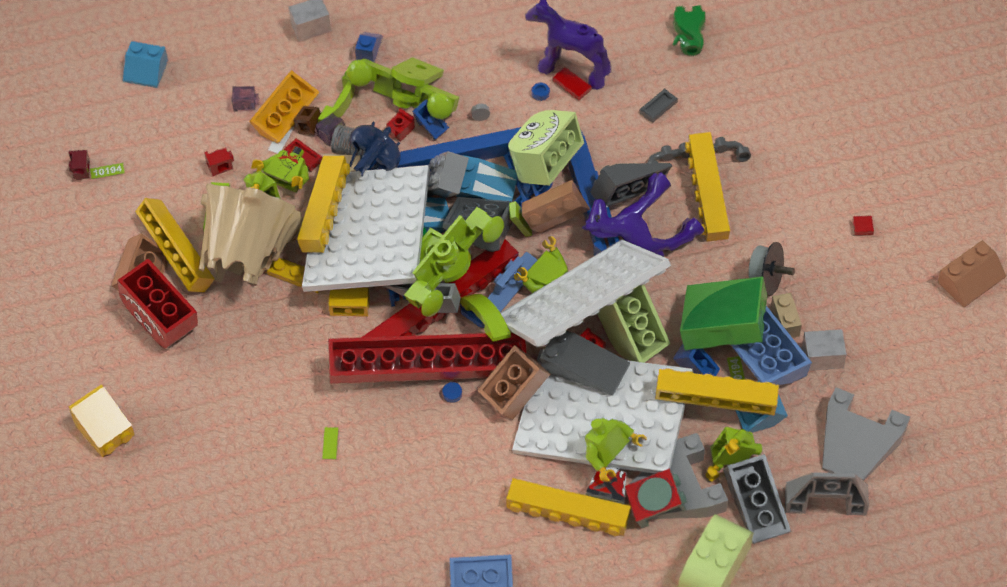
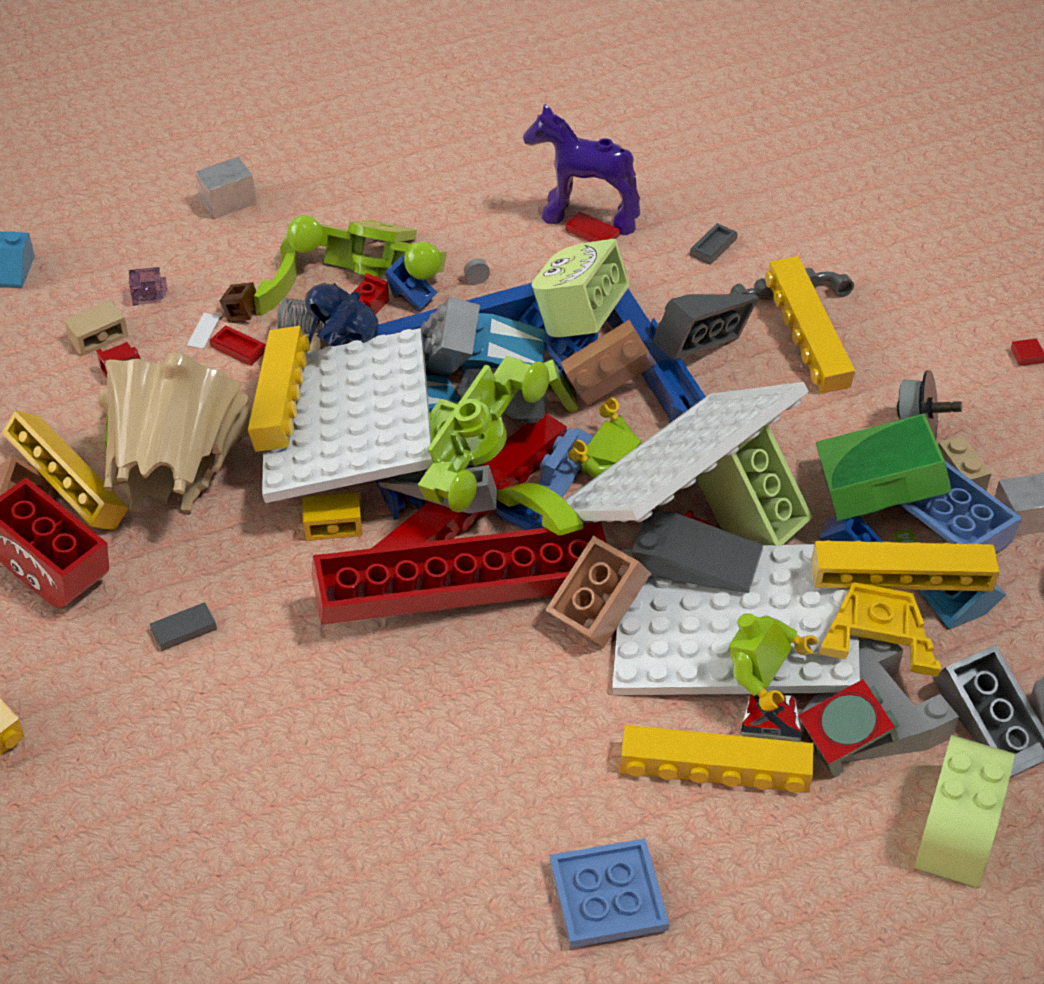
camera: 10 degrees left, 10 degrees down
(205, 130) = (96, 327): none -> tan brick
(242, 370) = (183, 626): none -> dark grey tile
(282, 106) = (196, 296): light orange slope -> none
(285, 169) = (220, 354): lime torso -> none
(287, 272) = (242, 492): yellow plate -> none
(326, 128) = (266, 308): brick -> none
(330, 443) = (332, 712): lime sticker -> none
(368, 46) = (311, 206): blue slope -> none
(452, 392) = (505, 620): blue tile -> none
(540, 91) = (552, 242): blue tile -> none
(632, 226) = (717, 369): dark purple animal -> none
(689, 27) = (732, 154): green hips -> none
(694, 425) = (885, 617): none -> yellow wing
(730, 448) = (952, 640): lime torso -> none

